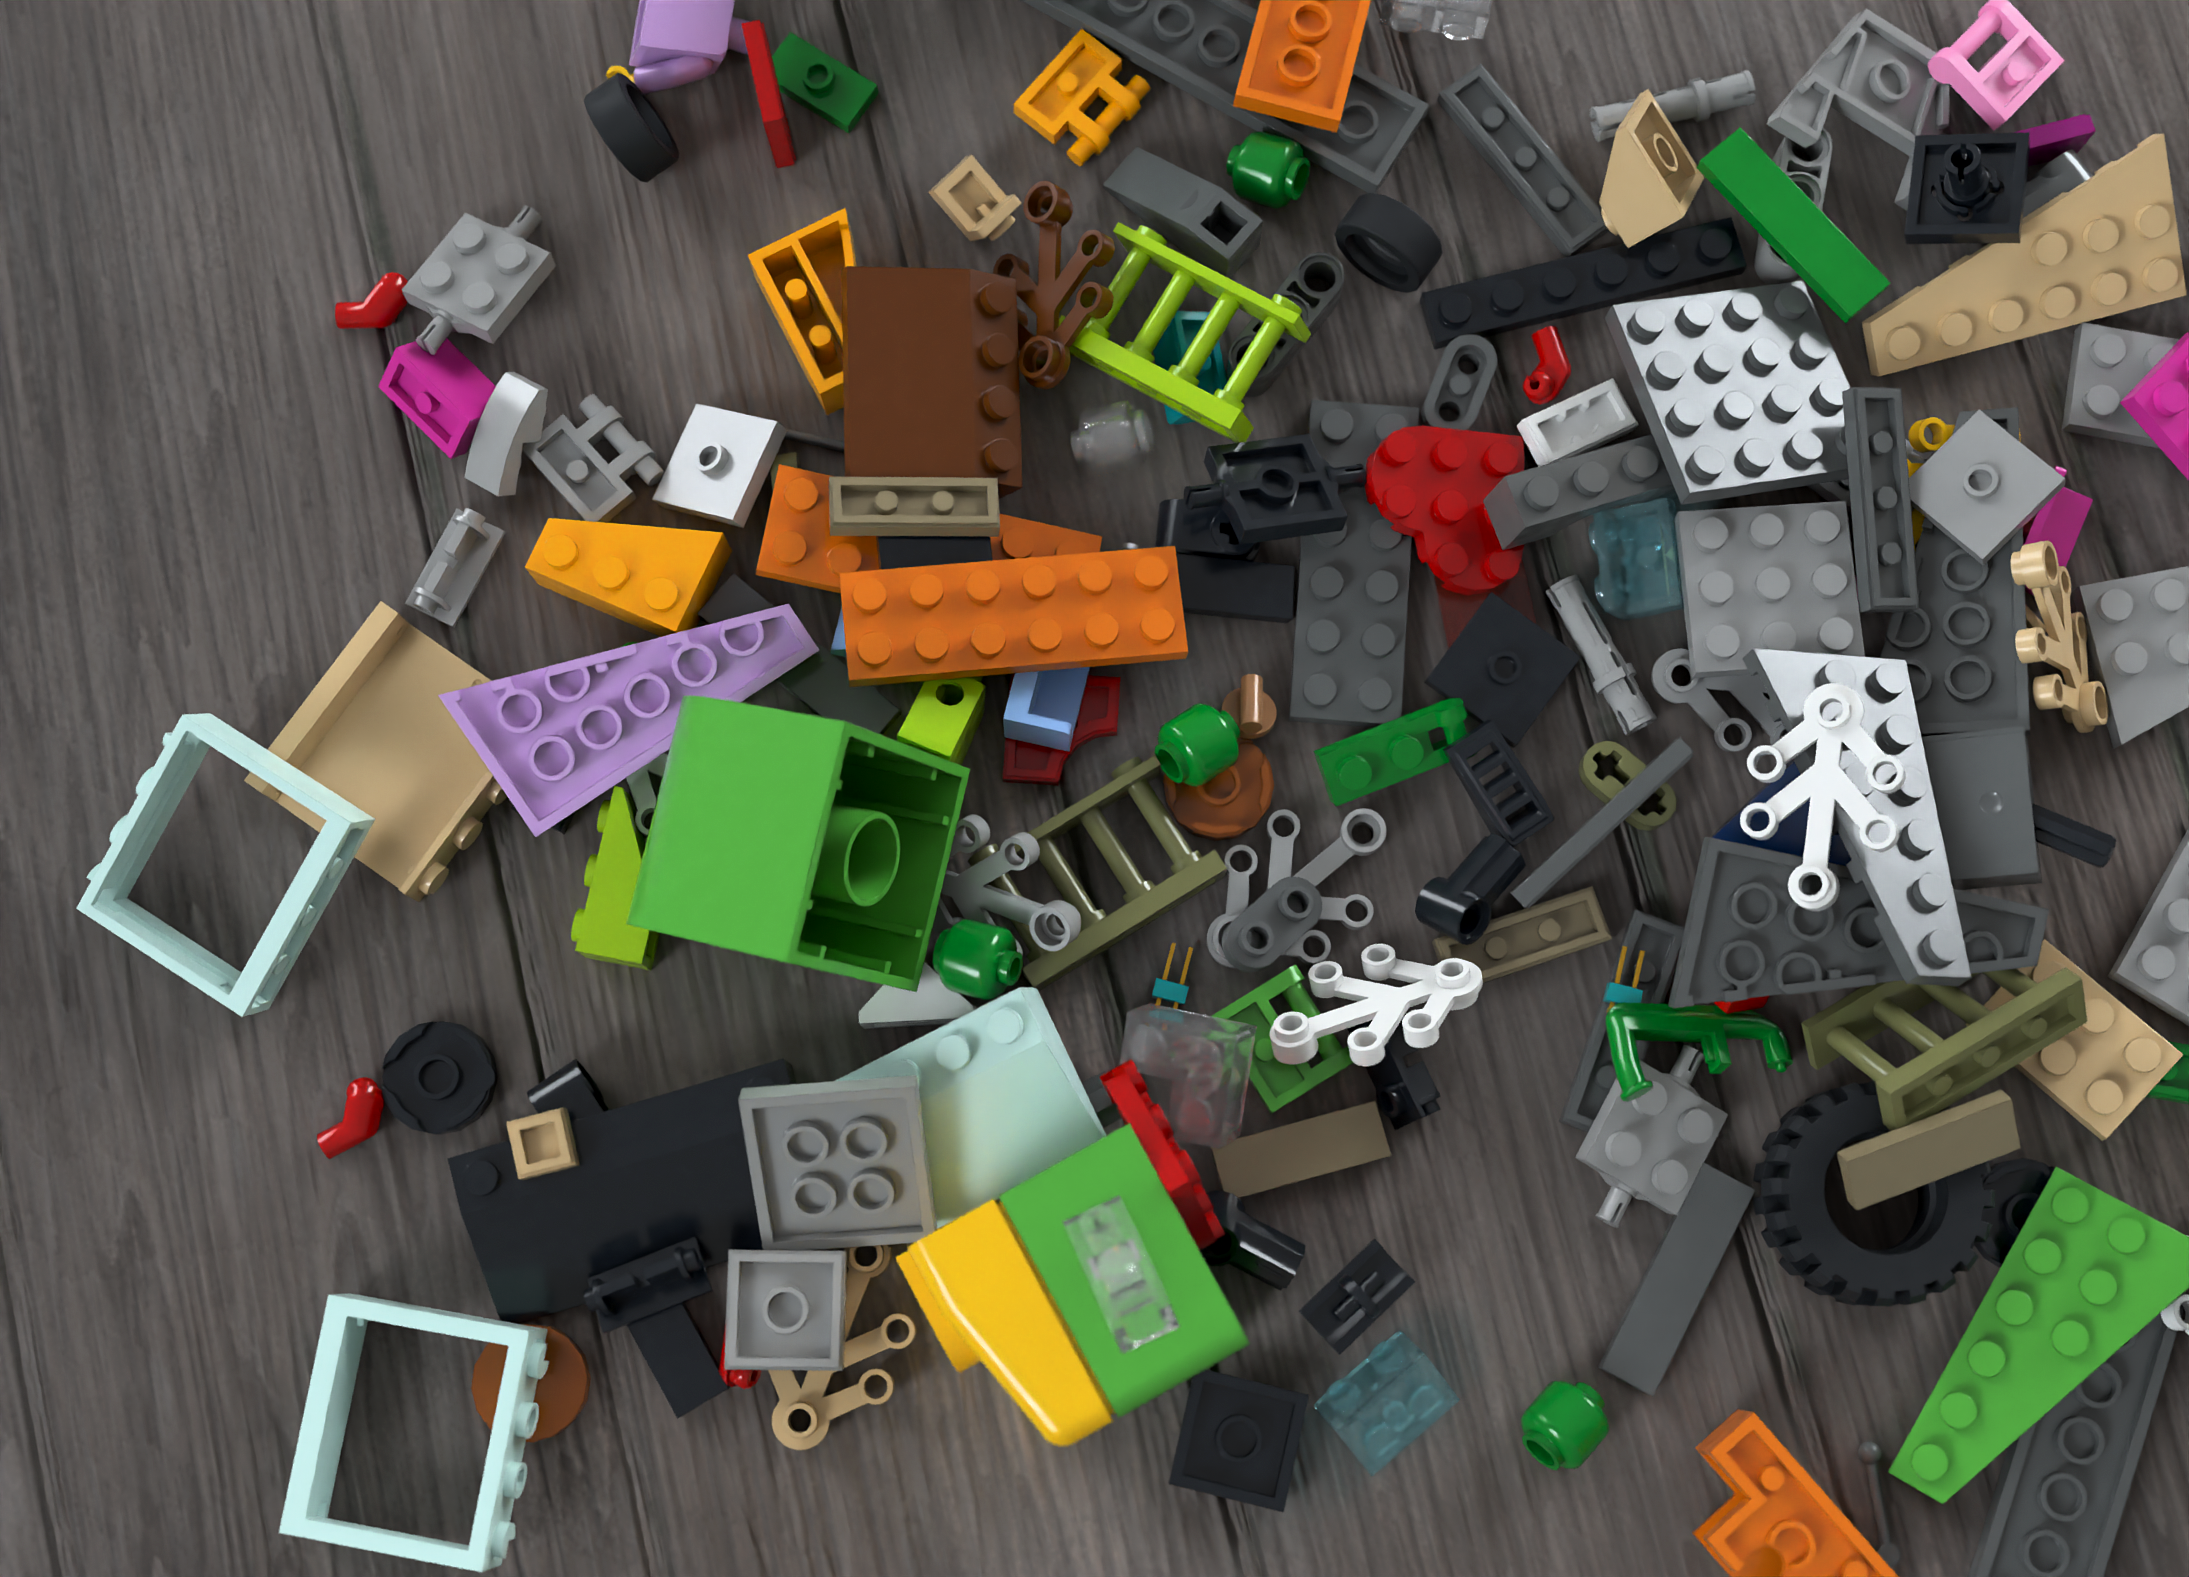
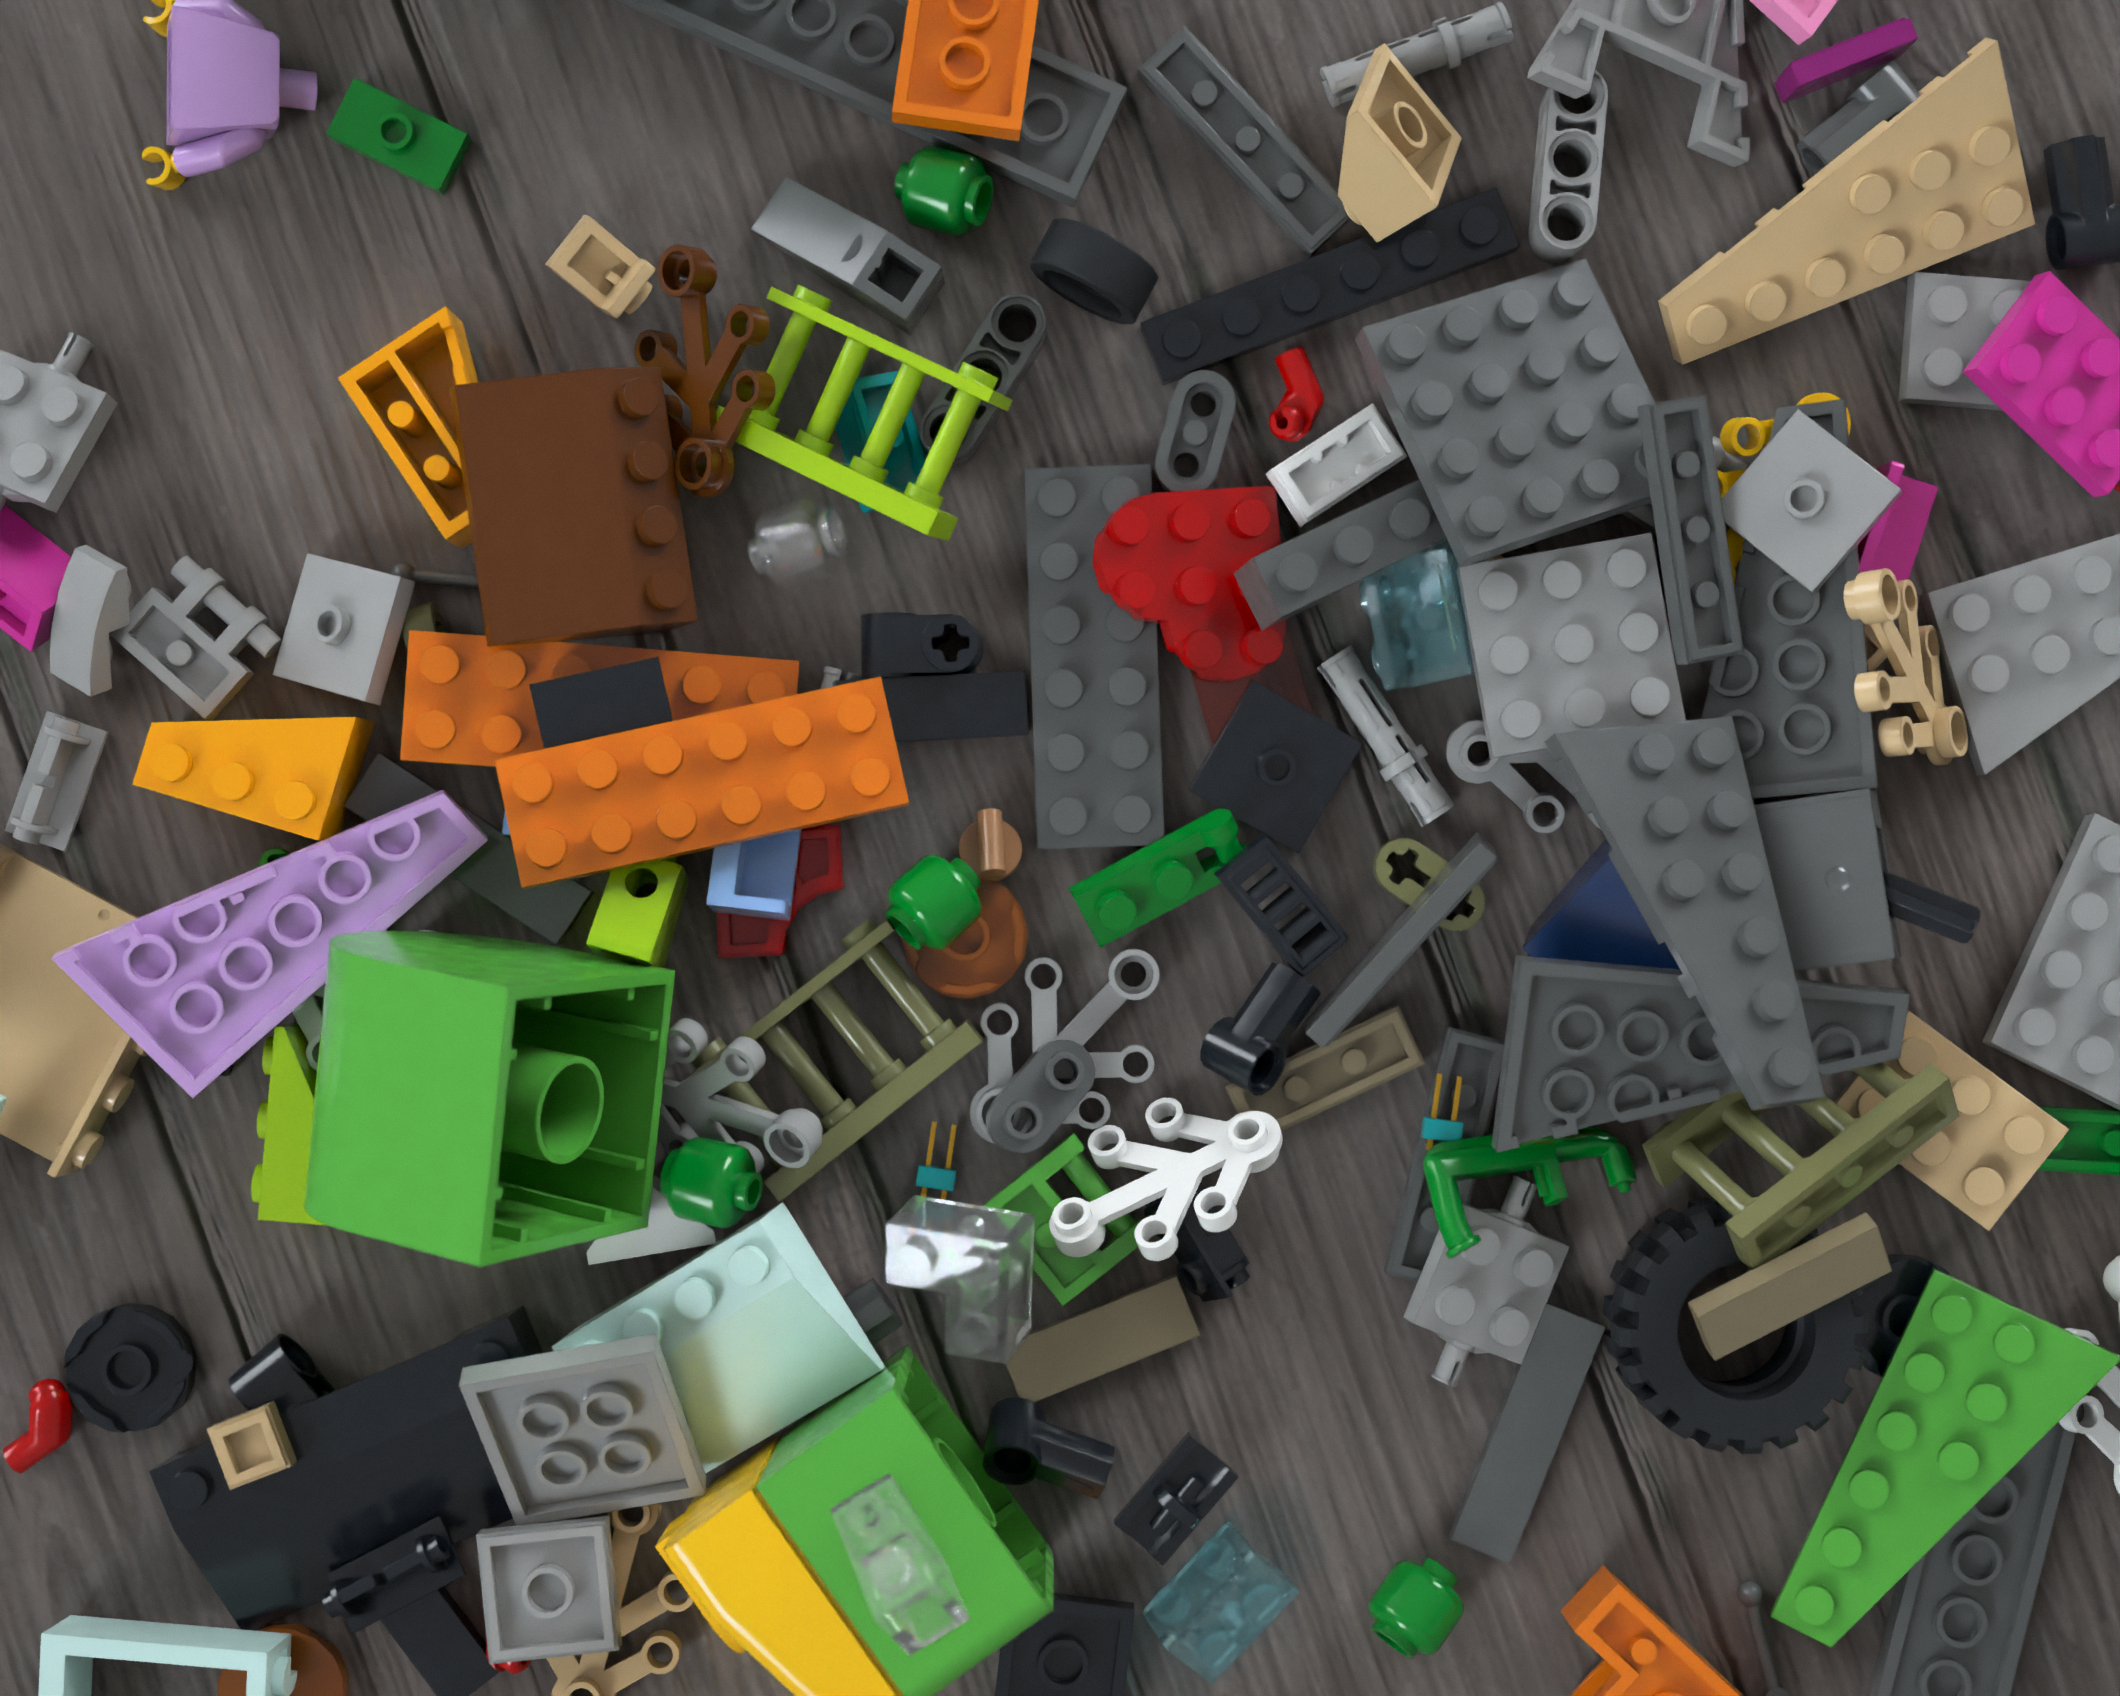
camera: 10 degrees left, 10 degrees up
(631, 127) = (179, 228): black tyre -> none
(769, 93) = (337, 175): red tile -> none
(913, 506) = (570, 668): dark tan tile -> none
(1070, 86) = (697, 111): light orange plate -> none
(1171, 1163) = (937, 1397): red plate -> none
(1275, 488) = (990, 592): black plate -> none
(1793, 225) = (1566, 199): green tile -> none
(1823, 786) = (1647, 893): white plant -> none
(1967, 171) = (1768, 107): black plate -> none

